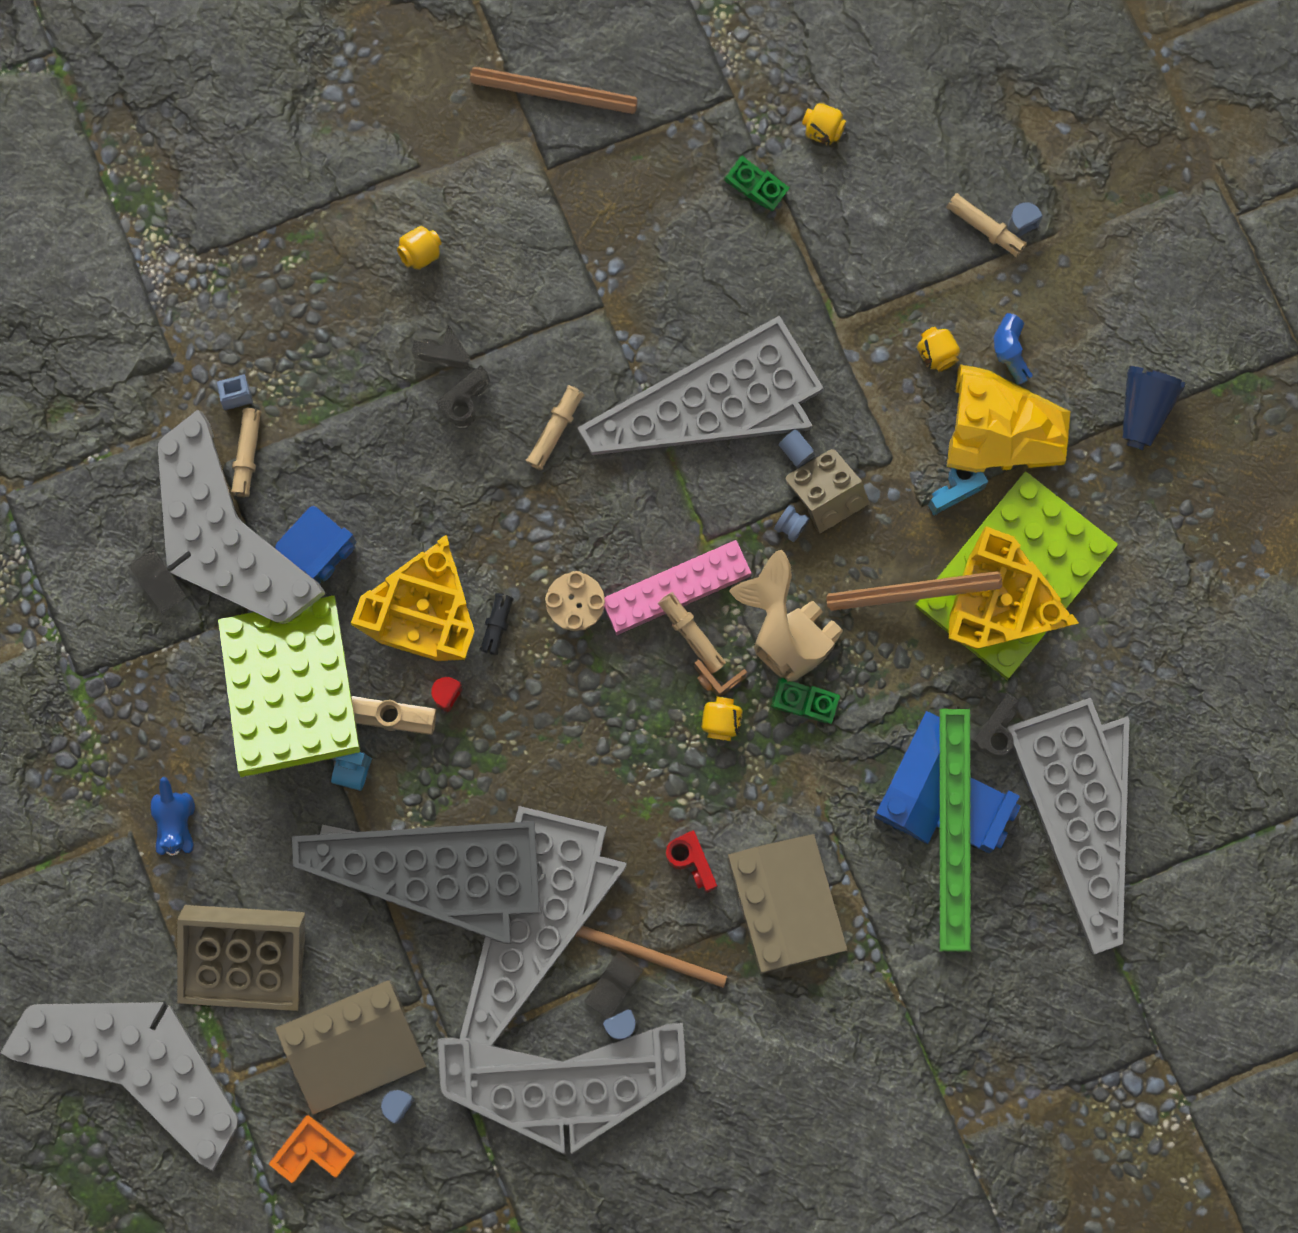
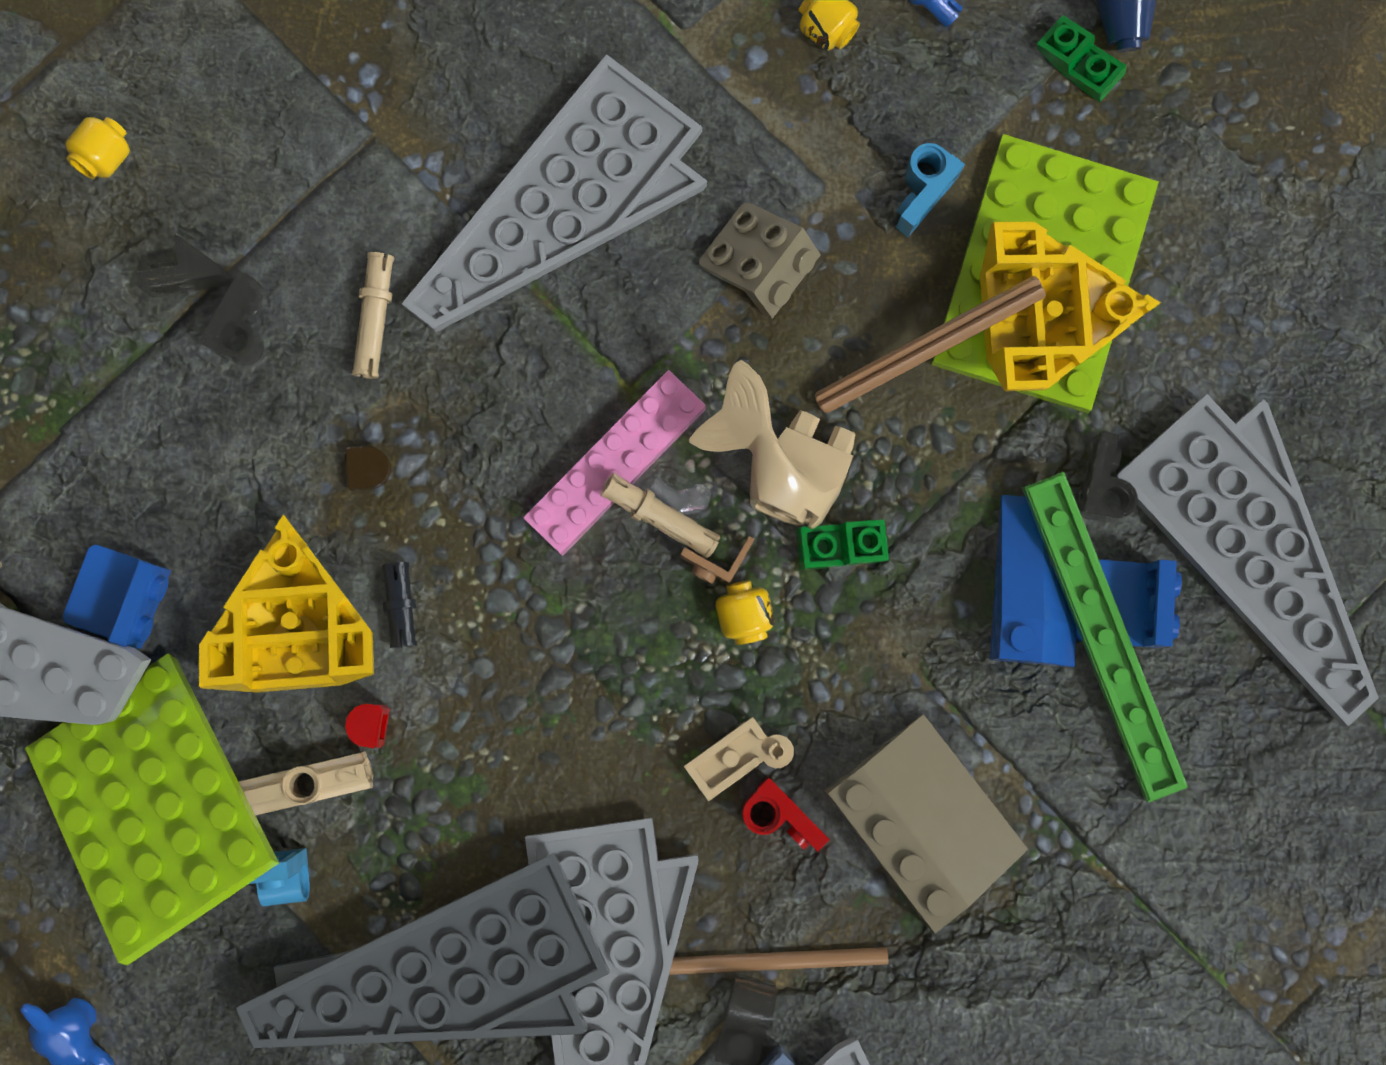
camera: 25 degrees left, 5 degrees up
(510, 526) = (366, 468): none -> dark brown tile
(585, 592) = (500, 518): tan plate -> none
(678, 810) = (736, 756): none -> tan hinge
(713, 631) = (685, 501): none -> clear arm
(791, 523) = (731, 319): sand blue wheel -> none
(797, 448) = (699, 219): sand blue brick -> none
(1004, 425) = (954, 84): yellow wedge -> none
(1099, 441) = (1079, 60): none -> green slope

